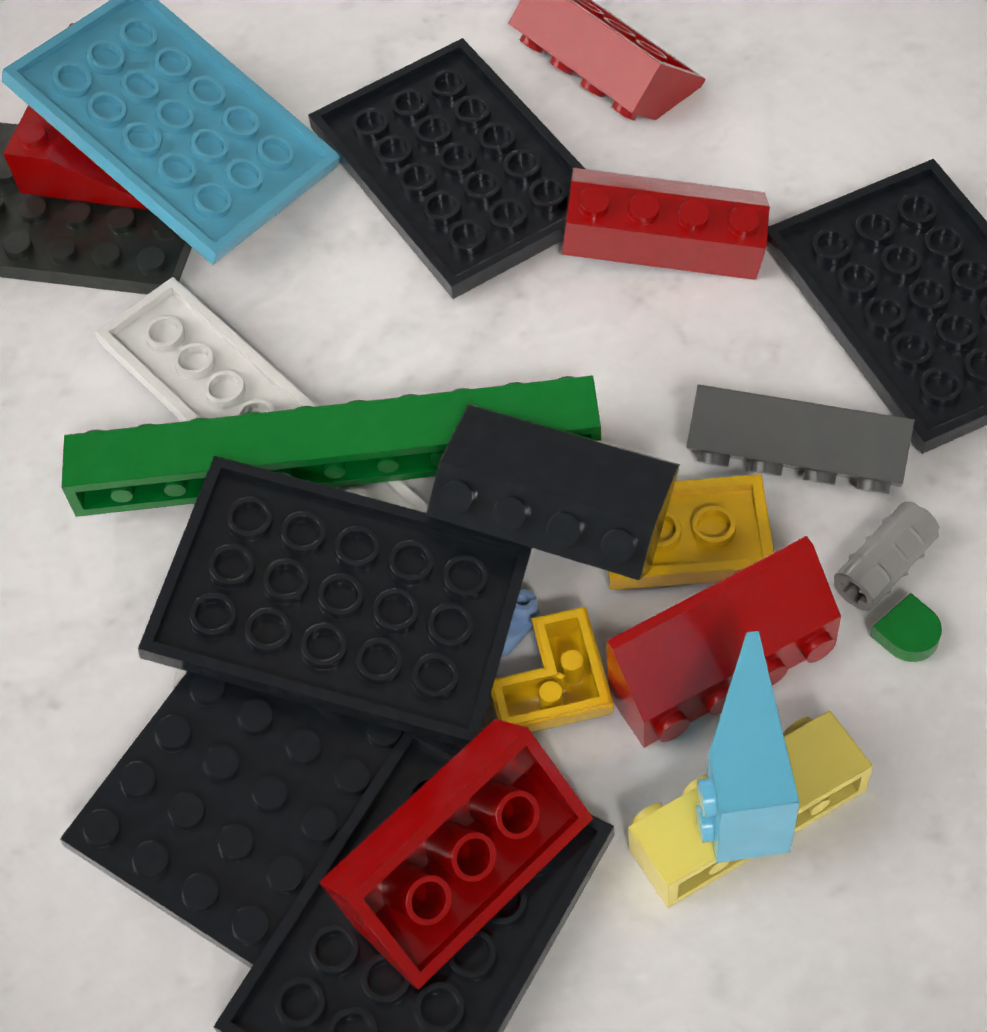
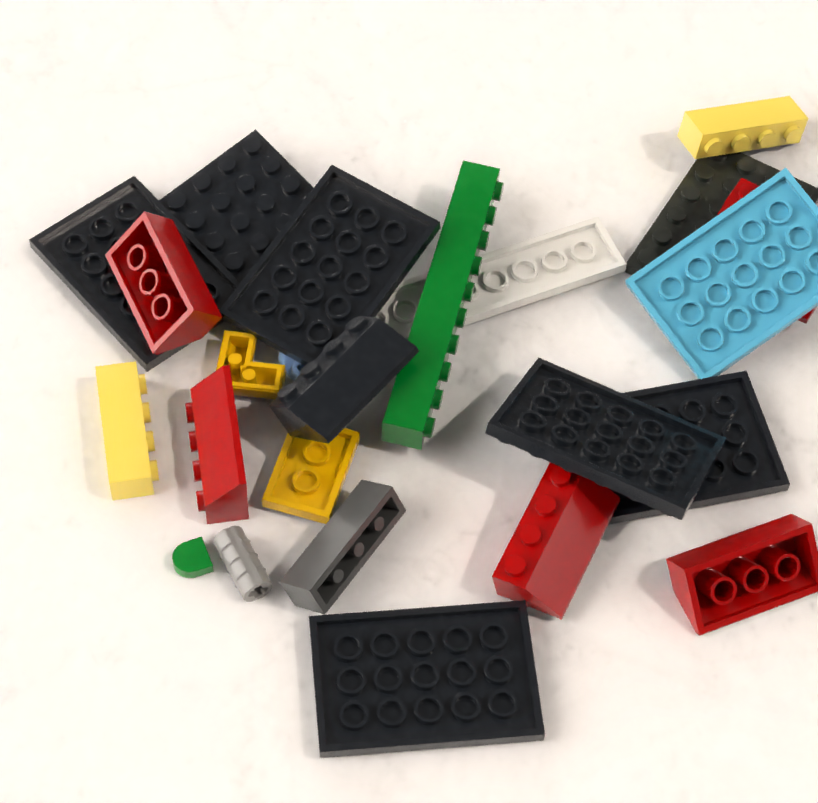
camera: 100 degrees right, 0 degrees up
(504, 184) = (607, 437): none -> black plate
(749, 787) = (127, 402): medium azure slope -> none

